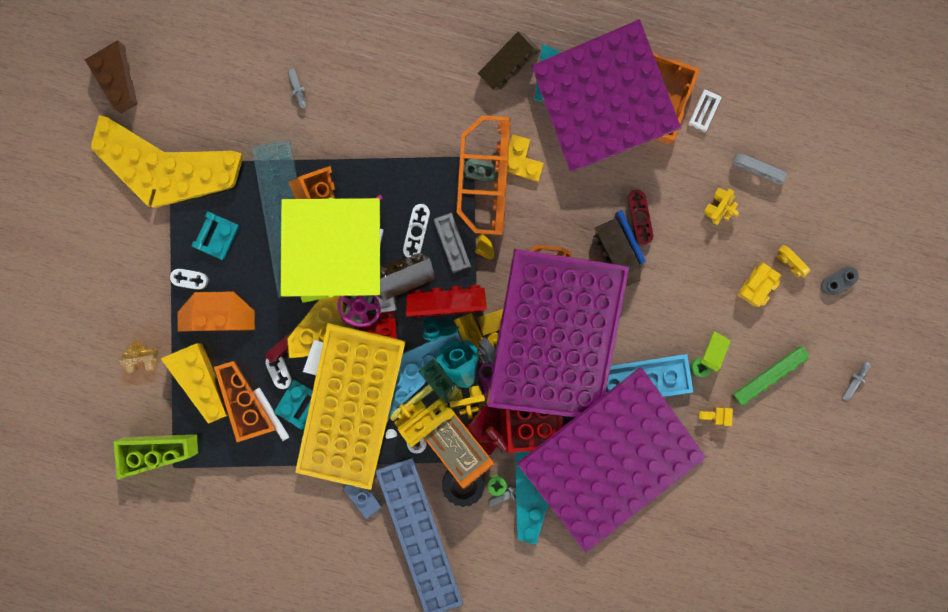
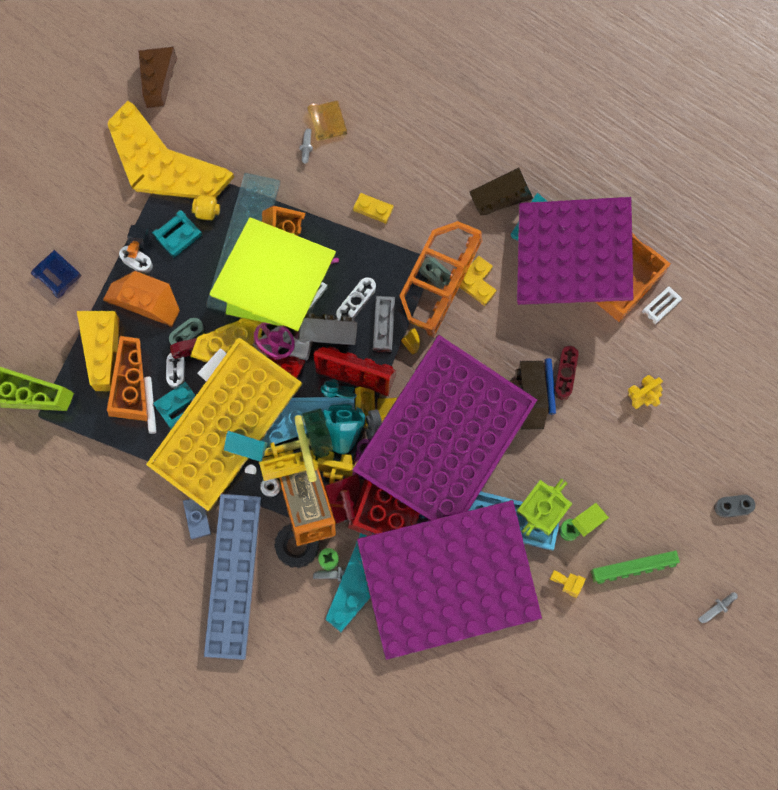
camera: 20 degrees right, 15 degrees down
(122, 318) = (60, 269): none -> clear blue plate
(138, 354) = (48, 308): clear yellow hips -> none
(180, 259) = (137, 238): none -> black piece
(231, 199) = (205, 207): none -> yellow head
(272, 332) = (184, 331): none -> sand green plate
(310, 47) = (332, 117): none -> clear yellow plate
(379, 421) = (245, 446): none -> teal slope
(390, 126) = (373, 208): none -> yellow plate
(435, 402) = (305, 448): none -> light yellow bar
(671, 359) = (544, 507): none -> lime plate
(759, 168) = (694, 373): light grey beam -> none
(759, 284) = (655, 476): yellow brick -> none
(787, 256) = (693, 462): yellow plate -> none

